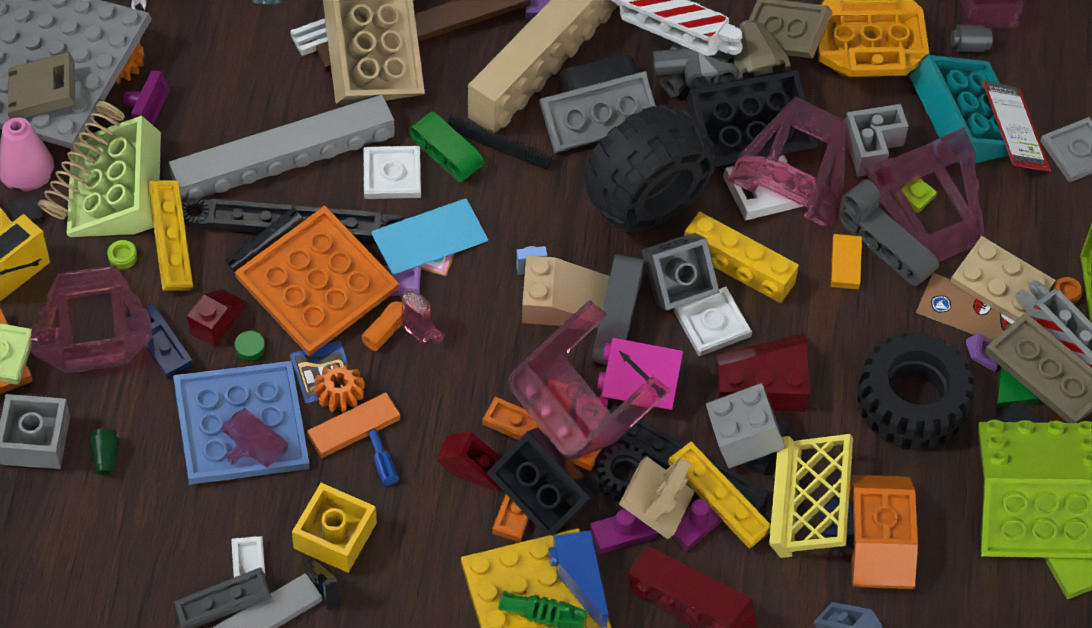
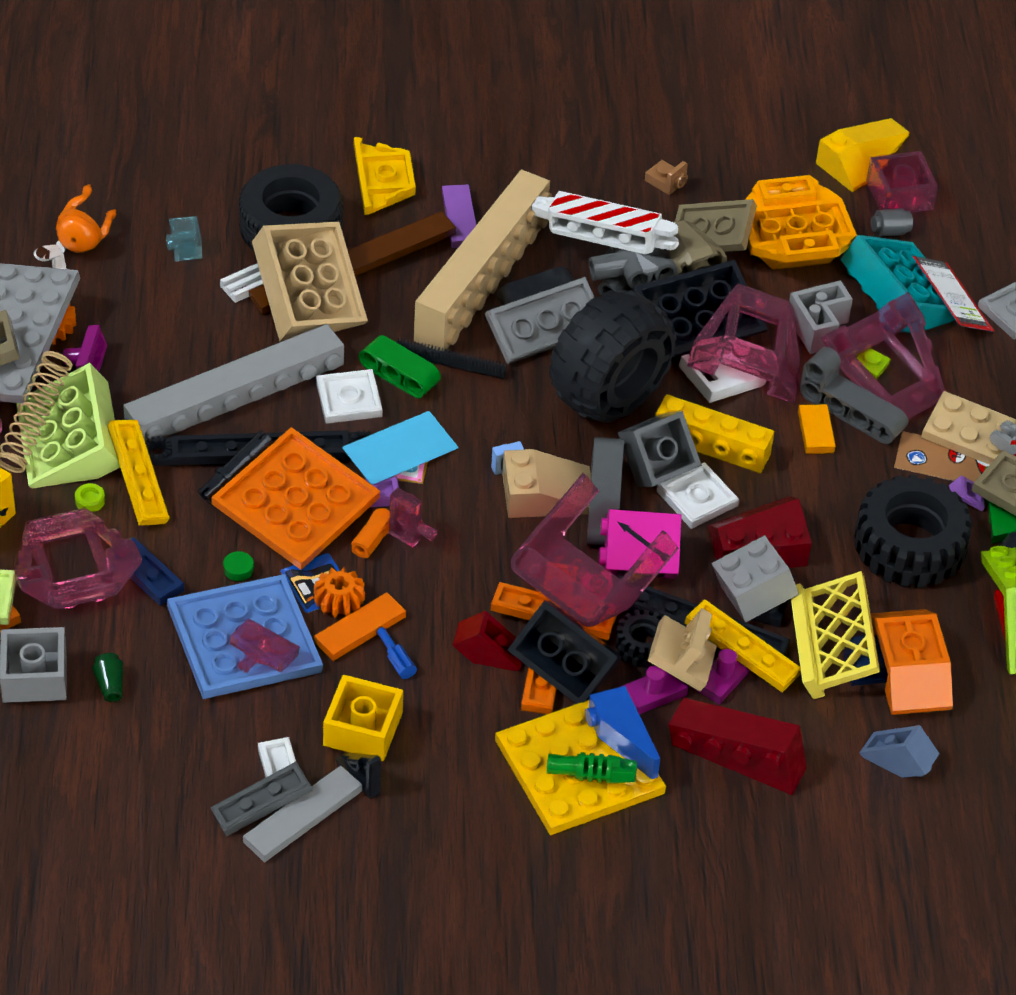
camera: 10 degrees left, 10 degrees down
(214, 315) = (196, 542): dark red slope -> none

